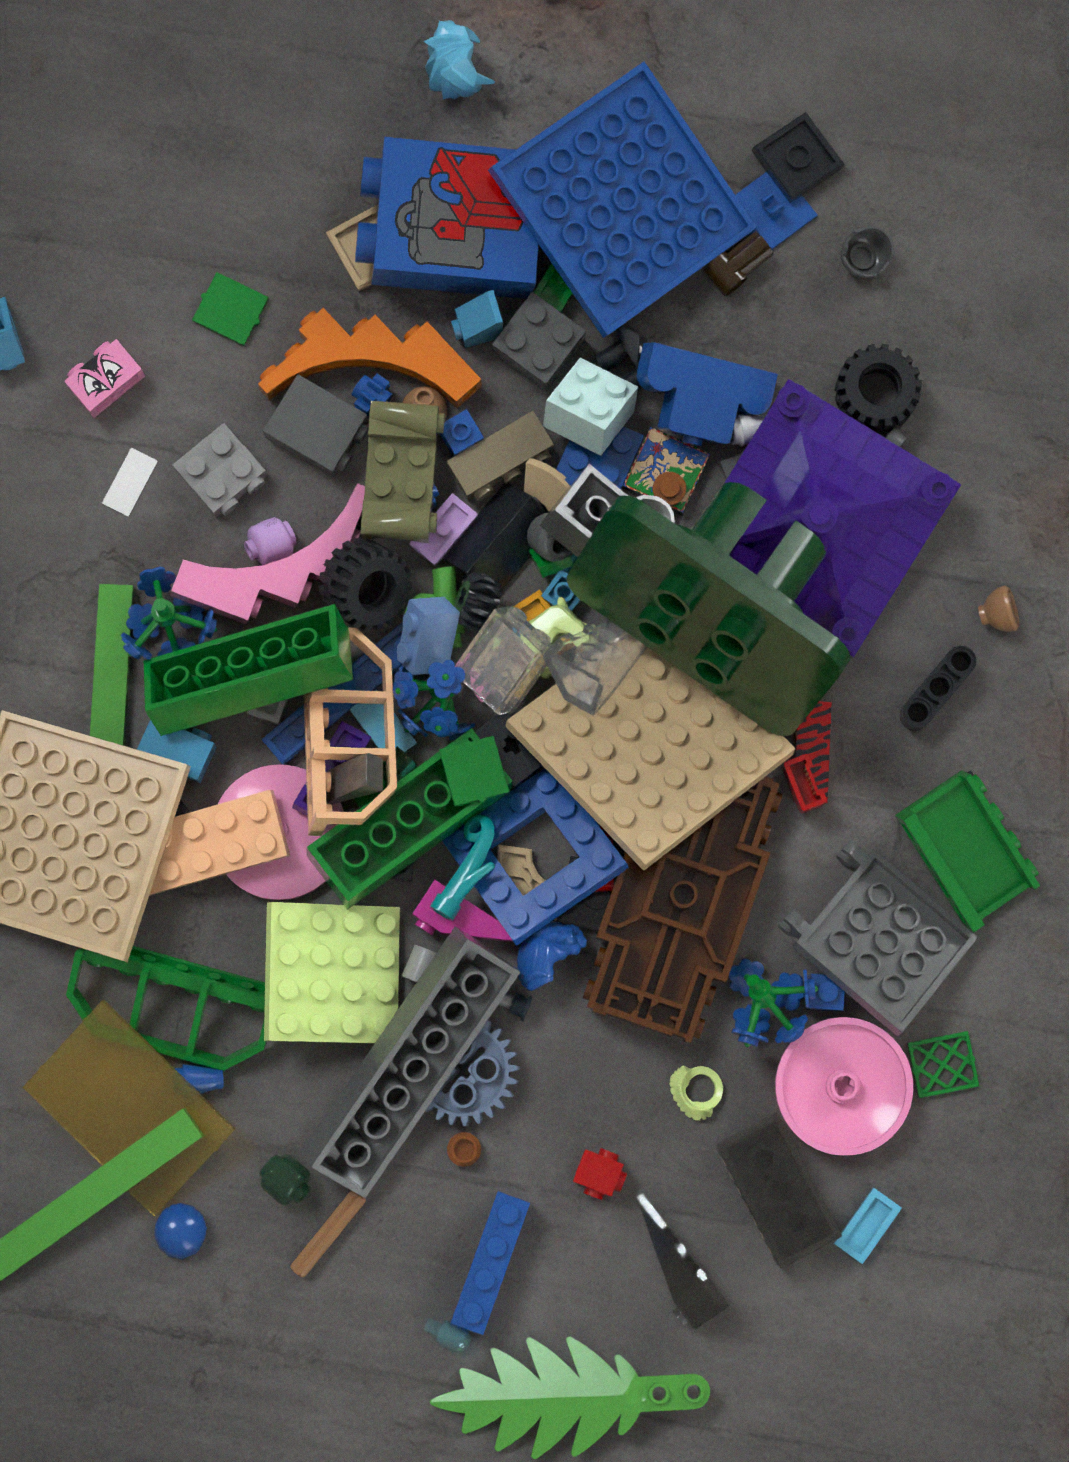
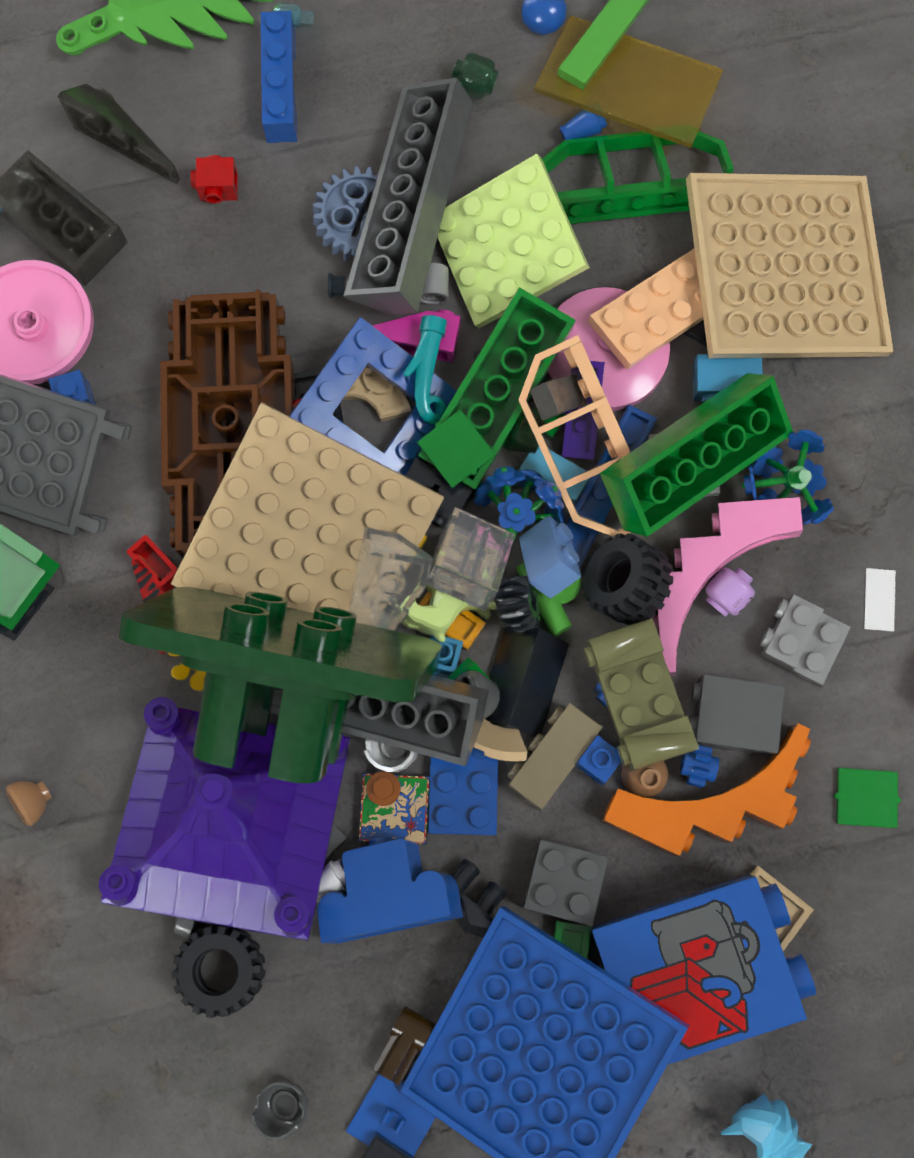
camera: 160 degrees right, 5 degrees down
(111, 664) = (811, 414): bright green tile -> none
(327, 1234) = (424, 49): medium nougat axle -> none
(452, 521) = (574, 673): lavender plate -> none
(464, 1149) = (337, 157): dark orange plate -> none
(478, 320) = (631, 878): dark azure slope -> none
(545, 948) = (328, 331): blue hair -> none
(590, 406) = (489, 835): light aqua brick -> none
(680, 1080) = (176, 278): yellowish green piece -> none
(785, 993) = (125, 359): blue plant -> none
(949, 676) = (61, 686): black beam -> none

